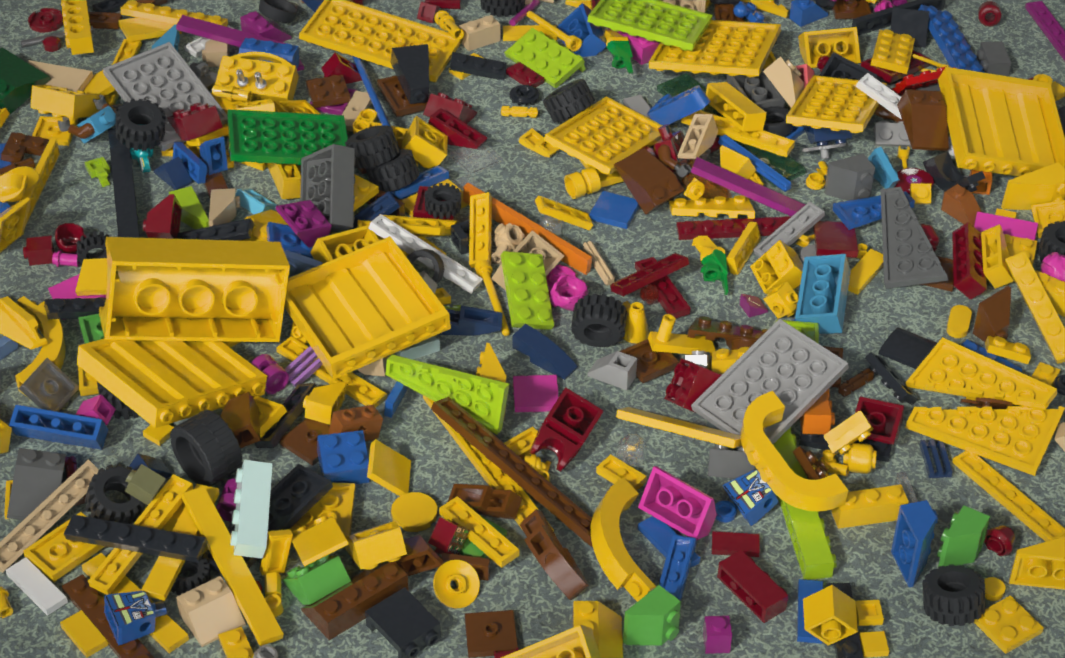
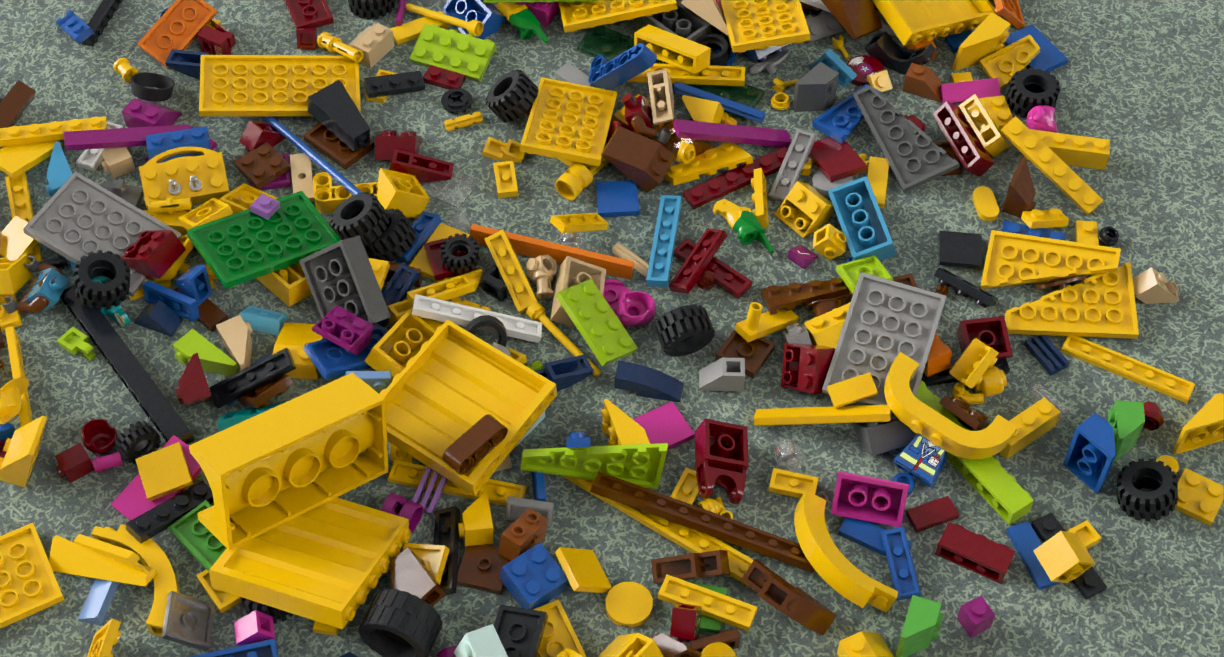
camera: 25 degrees left, 10 degrees up
(303, 114) = (264, 206): none -> medium lavender plate
(349, 332) = (474, 444): none -> reddish brown beam
(387, 412) = (517, 506): none -> light grey tile
(438, 358) = (577, 439): none -> blue plate
(525, 164) = (505, 179): none -> yellow plate
(630, 251) = (664, 241): none -> dark azure plate
(636, 323) = (717, 316): yellow piece -> none
(716, 413) = (852, 390): none -> yellow tile
(874, 644) = (1106, 565): yellow tile -> none

